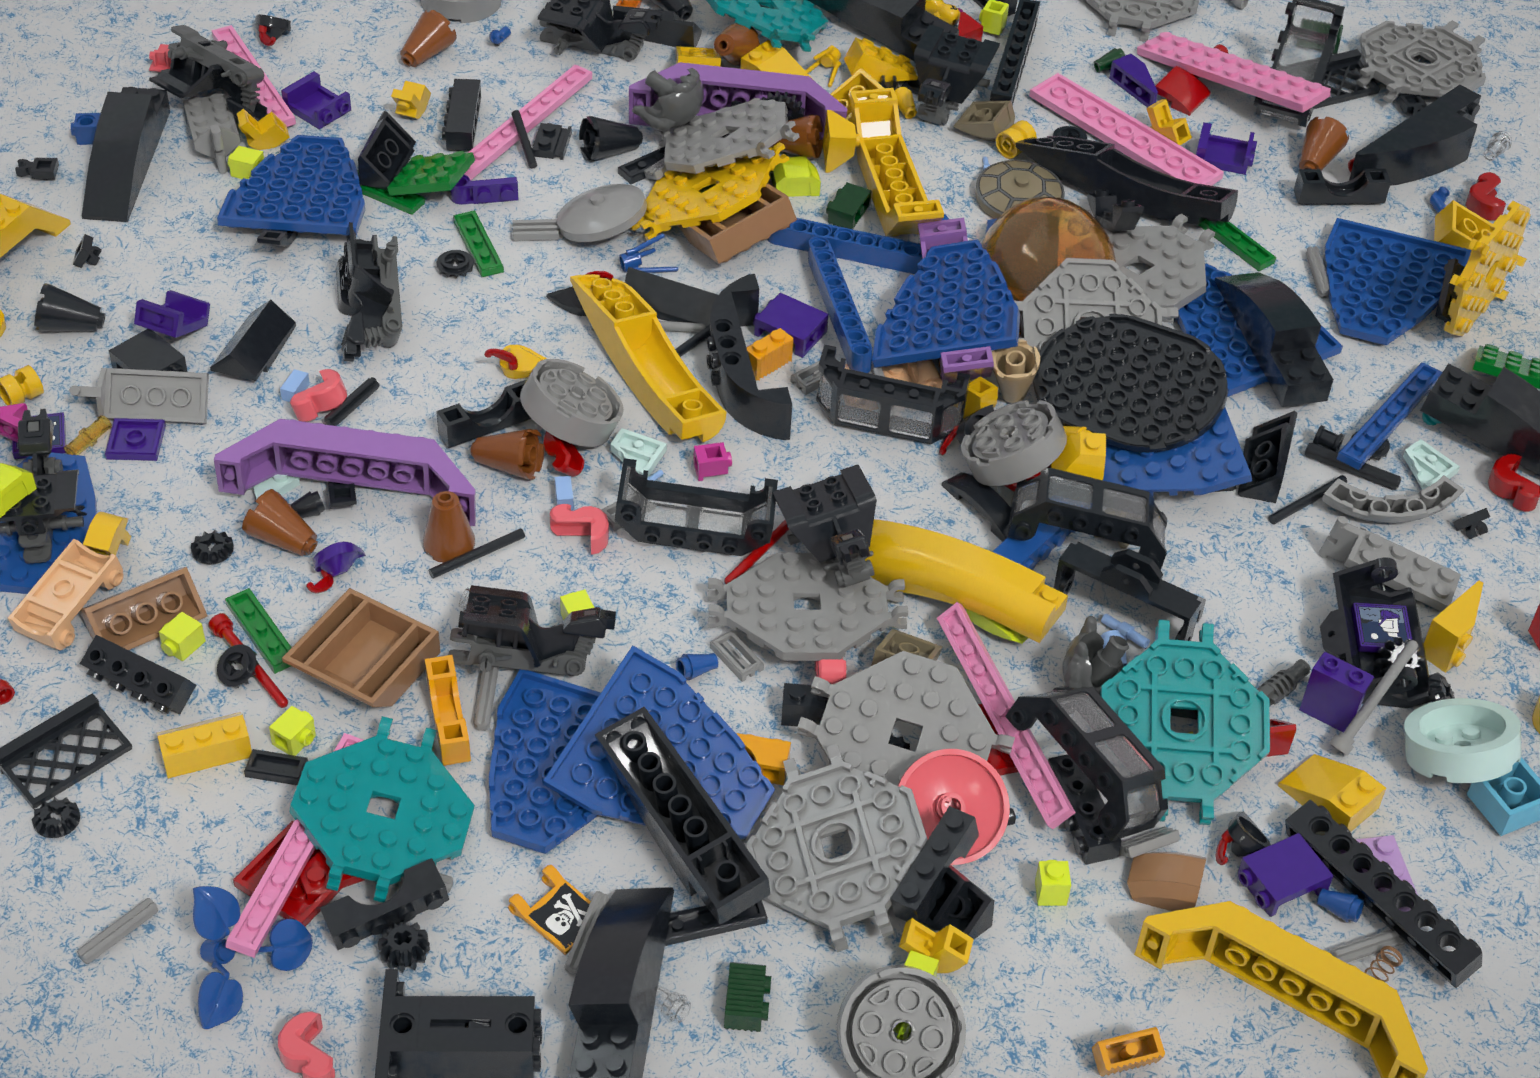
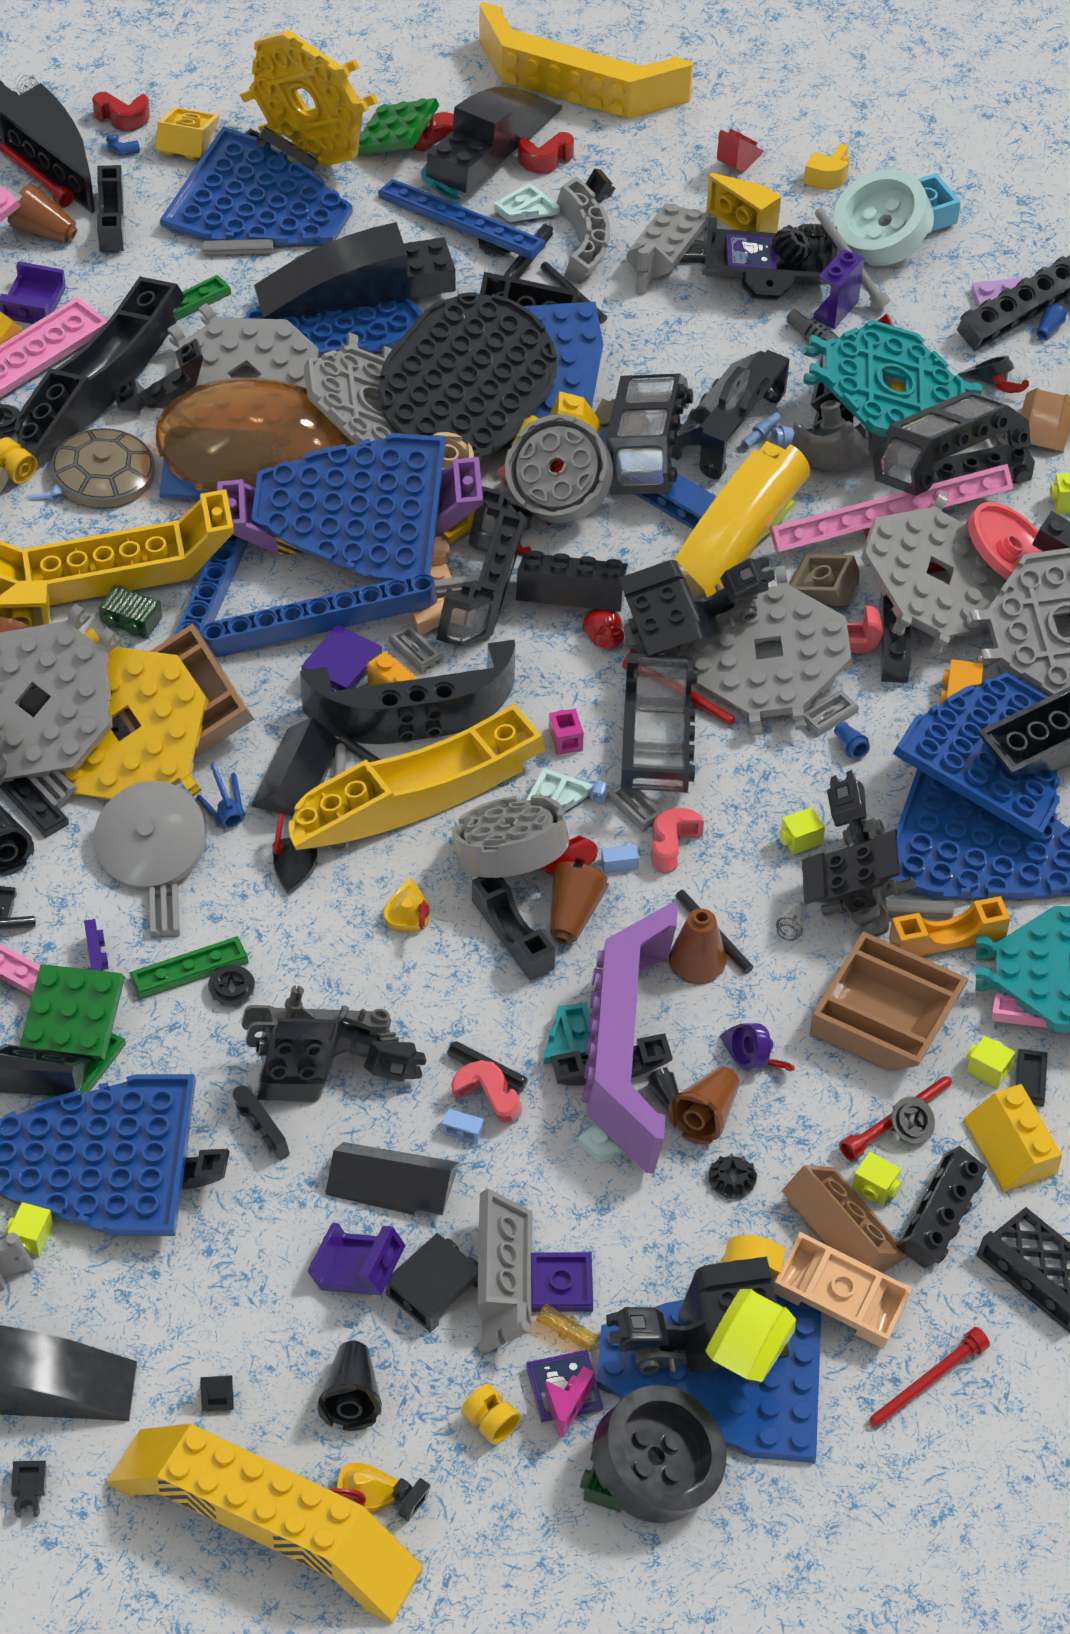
camera: 90 degrees left, 5 degrees up
(259, 628) = (848, 1114): green tile -> none
(312, 276) = (260, 1120): none -> black hinge
(889, 461) = (571, 581): none -> black brick
(983, 499) = (609, 513): black slope -> none
(1283, 873) = (1030, 348): dark purple panel -> none
(1328, 439) = (499, 262): black bush -> none
(1342, 789) = (934, 308): yellow slope -> none

